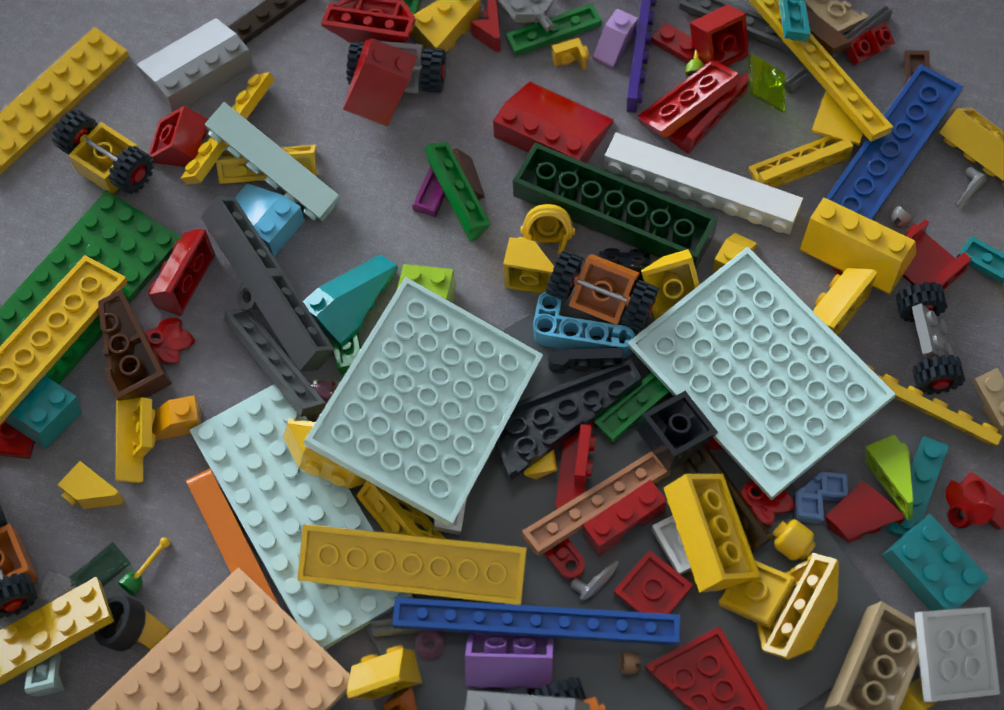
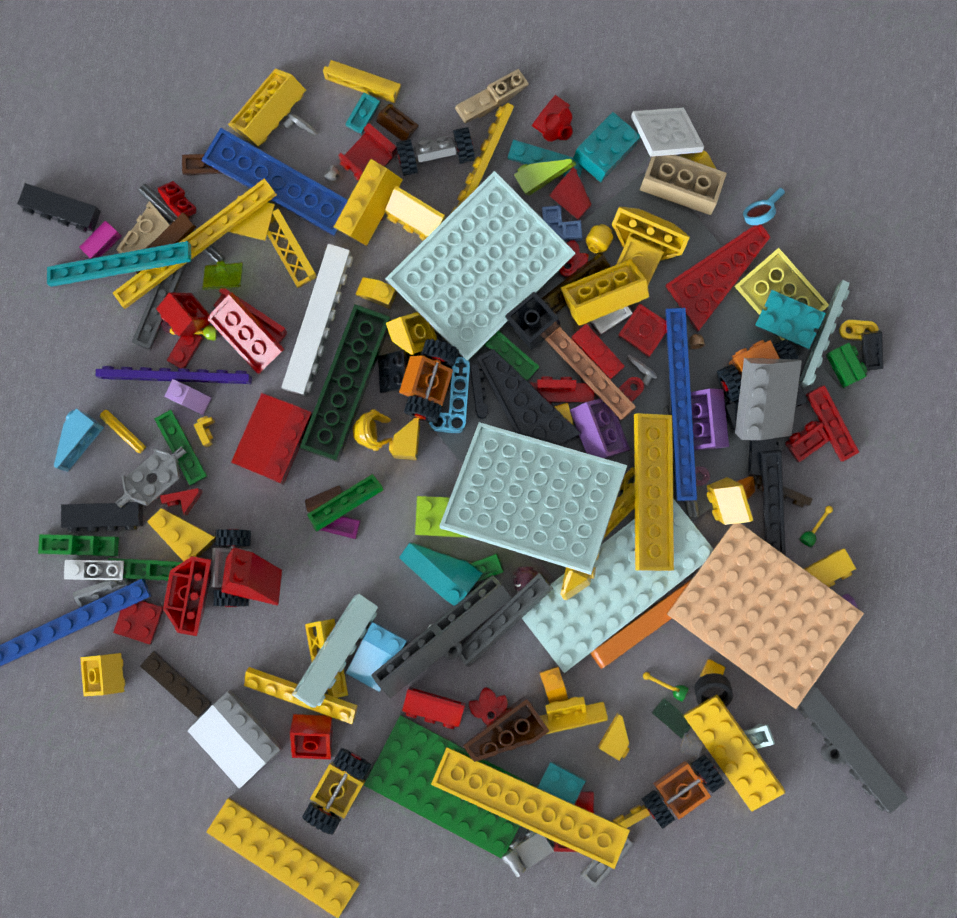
camera: 100 degrees left, 20 degrees up
(509, 507) = (599, 429): none -> medium lavender slope
(974, 302) = (396, 122): none -> reddish brown slope

